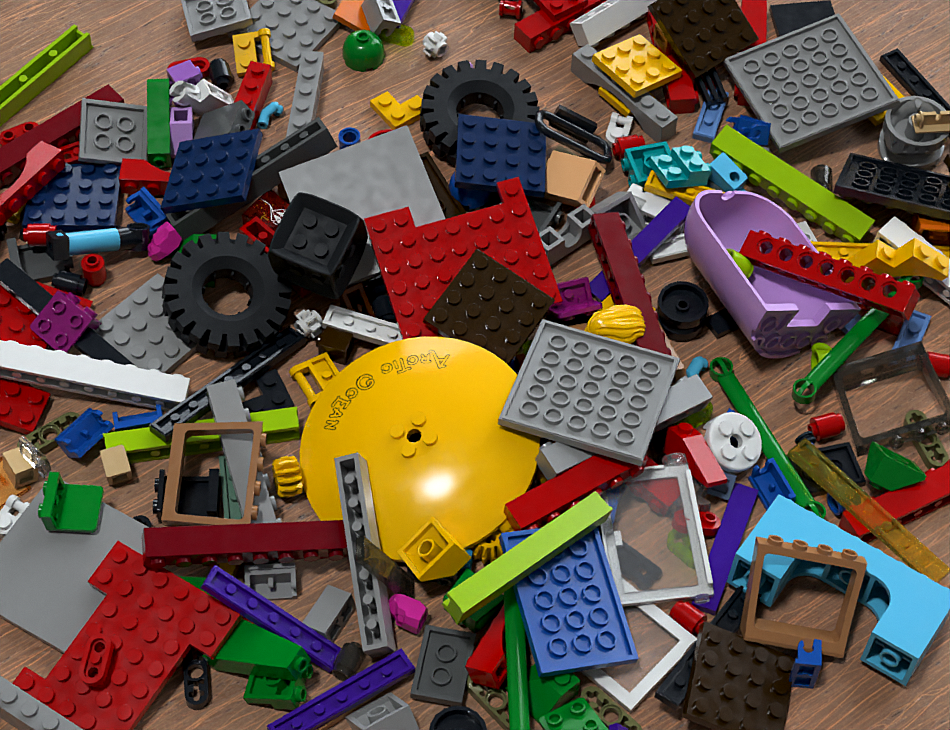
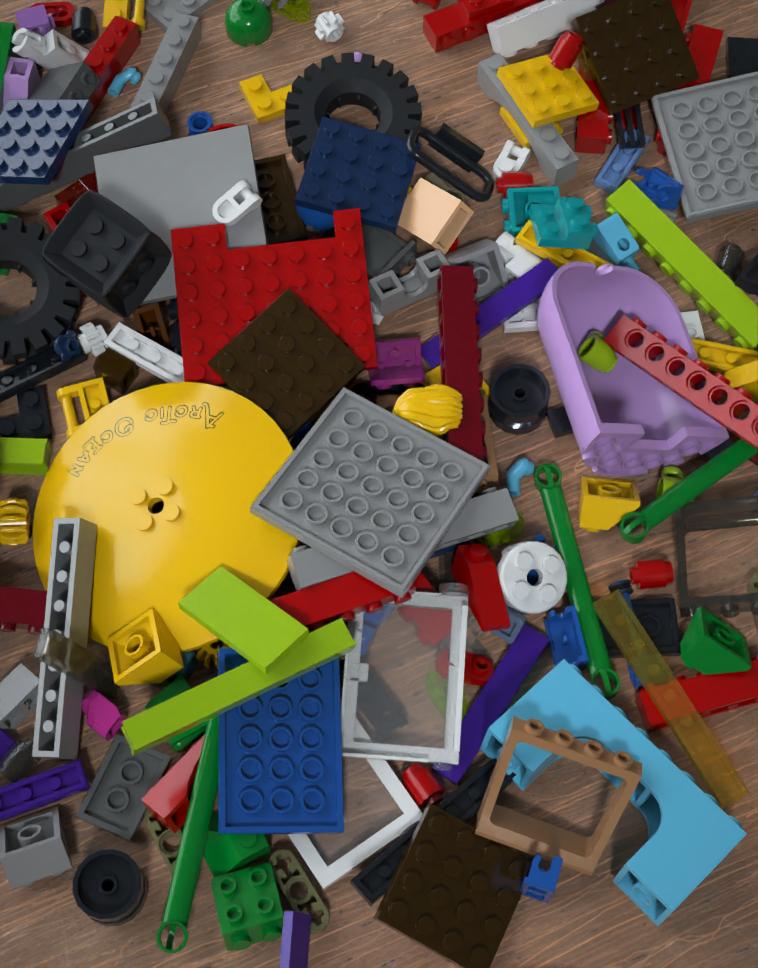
camera: 15 degrees right, 10 degrees up
(291, 330) = (67, 345): none -> dark blue plate
(410, 196) = (228, 211): none -> white plate
(517, 504) = (243, 619): none -> lime tile
(647, 31) = (566, 50): none -> red brick
(773, 379) = (605, 502): none -> yellow slope

